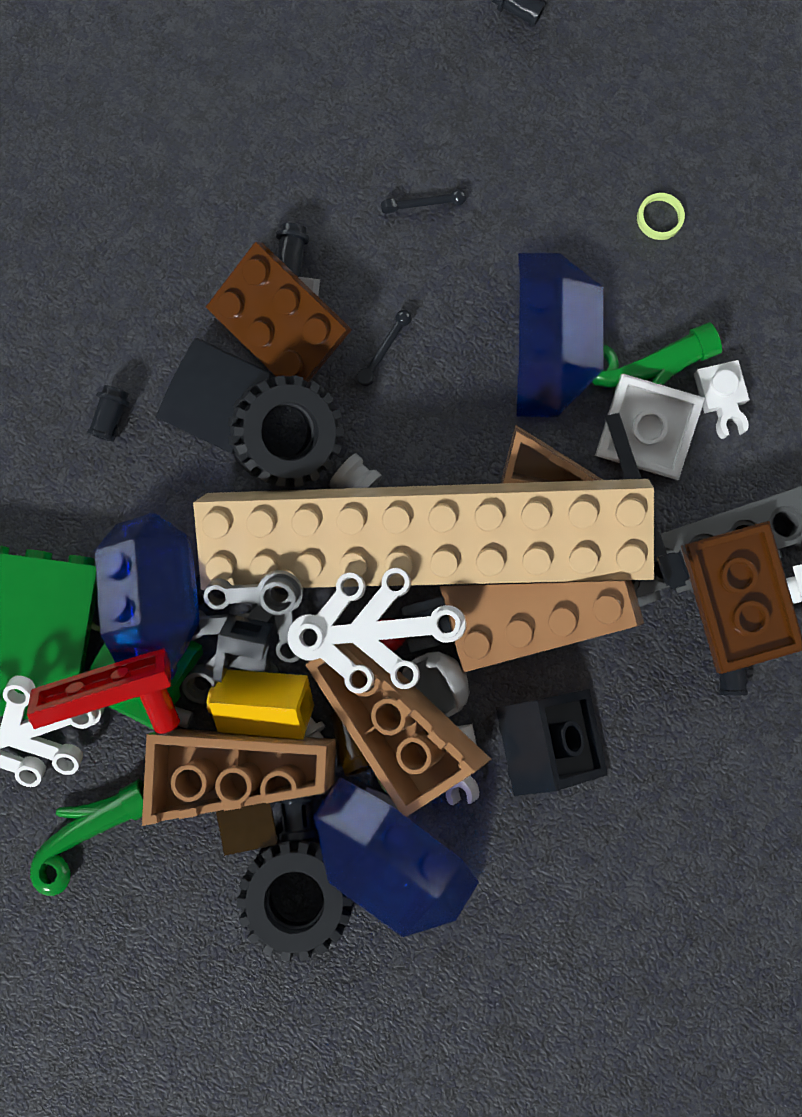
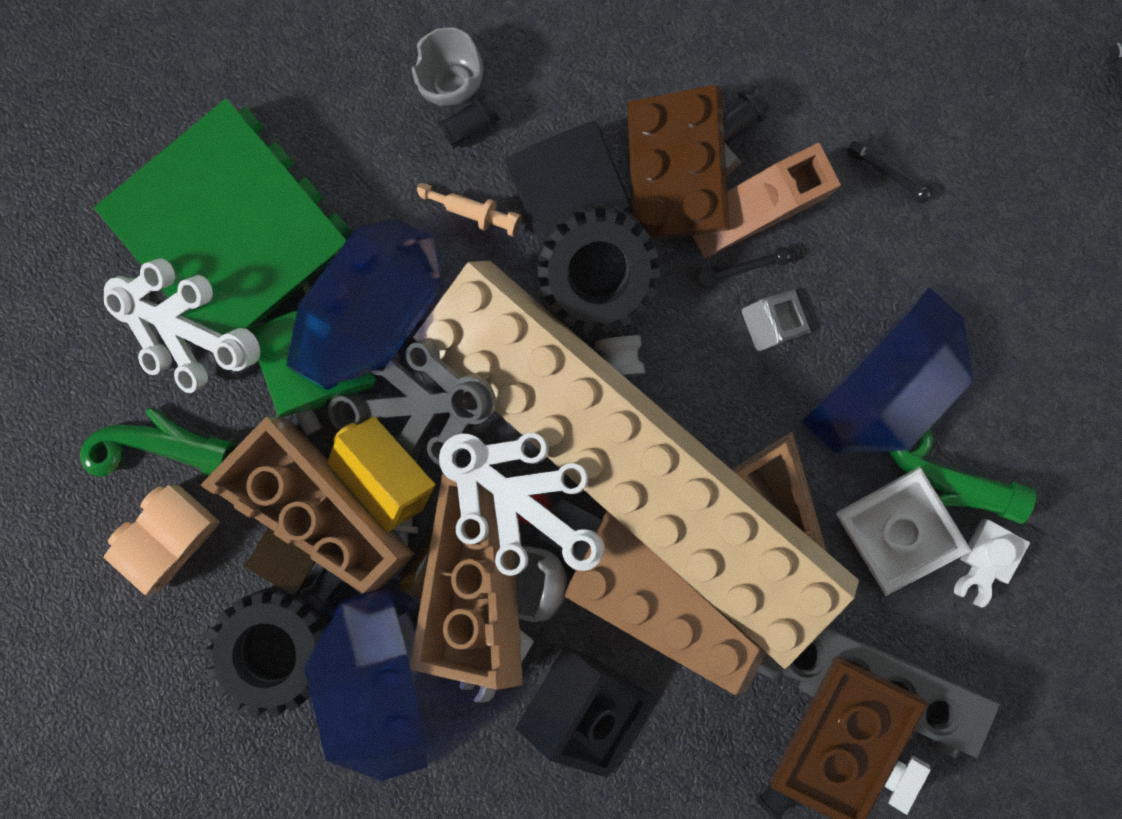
camera: 45 degrees right, 5 degrees up
(60, 388) = (447, 67): none -> light grey hair
(138, 676) = (265, 351): red piece -> none
(147, 893) = (160, 538): none -> light nougat brick
(173, 467) = (484, 214): none -> light nougat piece
(242, 645) = (405, 412): black panel -> none
(361, 283) = (773, 197): none -> nougat slope
(437, 364) = (775, 320): none -> light grey slope
(660, 197) = (1101, 356): yellowish green piece -> none
(671, 564) = (812, 667): black piece -> none

